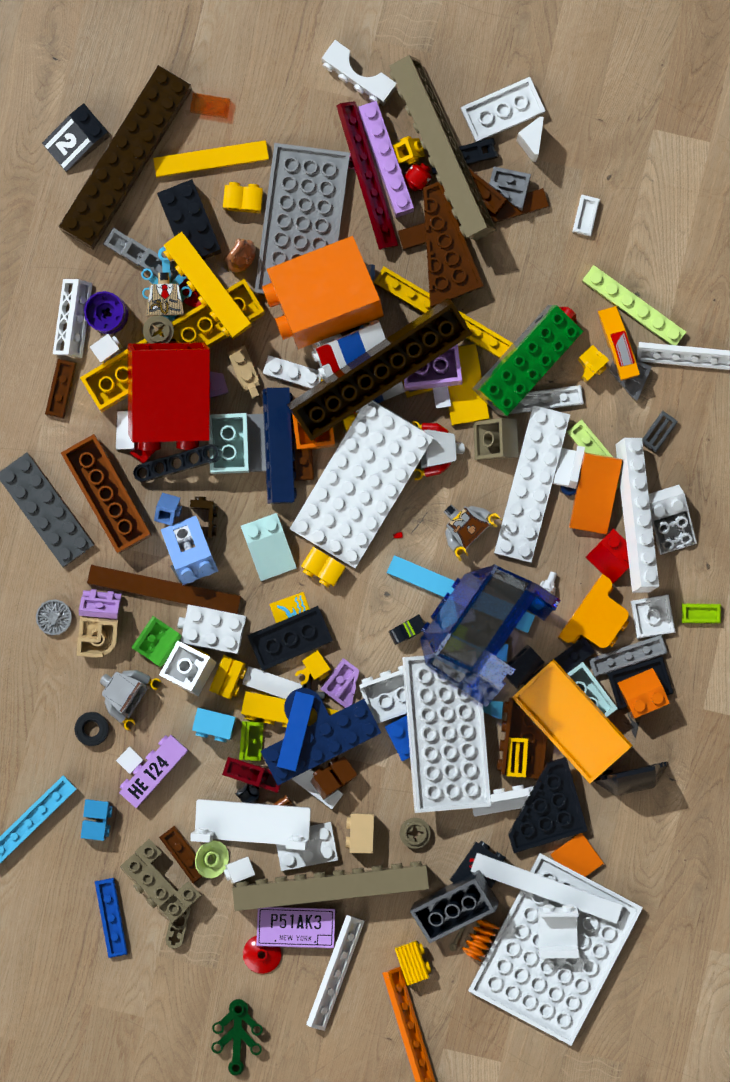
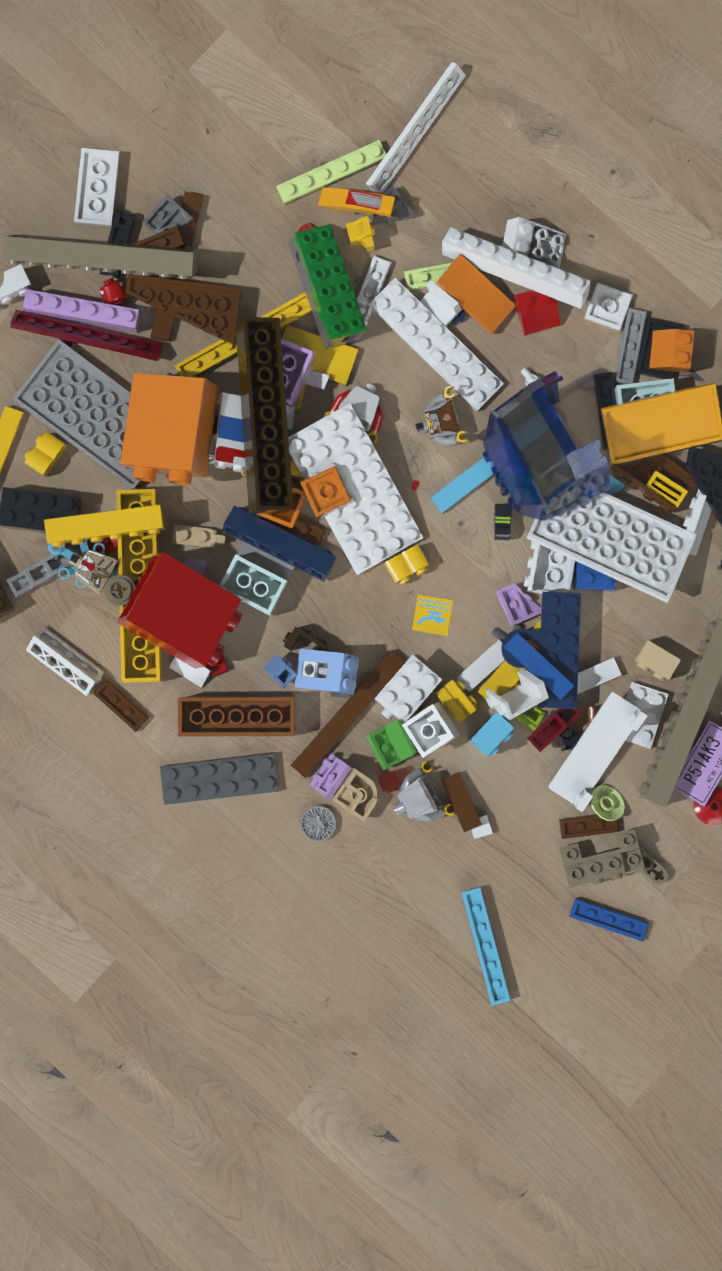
camera: 55 degrees left, 0 degrees up
(80, 732) = (432, 833): black tyre -> none
(93, 829) = (524, 891): dark azure piece -> none
(102, 302) = (66, 626): dark purple wheel -> none
(106, 348) = (109, 645): white piece -> none
(124, 658) = (389, 782): none -> clear red plate
(141, 731) = (461, 802): none -> reddish brown tile
(153, 771) = (503, 814): lavender brick -> none
(186, 463) = (239, 647): black beam -> none
(239, 870) = (630, 784): white brick -> none
(240, 256) = (95, 483): nougat piece -> none
(258, 730) = (520, 699): none -> white panel
(268, 547) = (362, 601): light aqua slope -> none
(290, 638) = (452, 627): black plate -> none
(291, 372) = (222, 496): white plate -> none
(315, 666) = (489, 619): yellow brick -> none
(334, 777) = (595, 656): reddish brown piece -> none
(344, 459) = (325, 491): none -> orange tile
(408, 150) = (86, 286): yellow brick -> none
(421, 839) = (690, 612): dark tan gear -> none
(495, 439) = (379, 353): dark tan slope -> none
(525, 664) = (586, 433): black hinge -> none
(530, 138) = (137, 176): white slope -> none
(586, 215) = (229, 169): white tile -> none
(596, 617) = (582, 354): light orange brick -> none
(649, 444) = (444, 197): dark grey tile -> none
(701, 613) = (628, 264): lime tile -> none

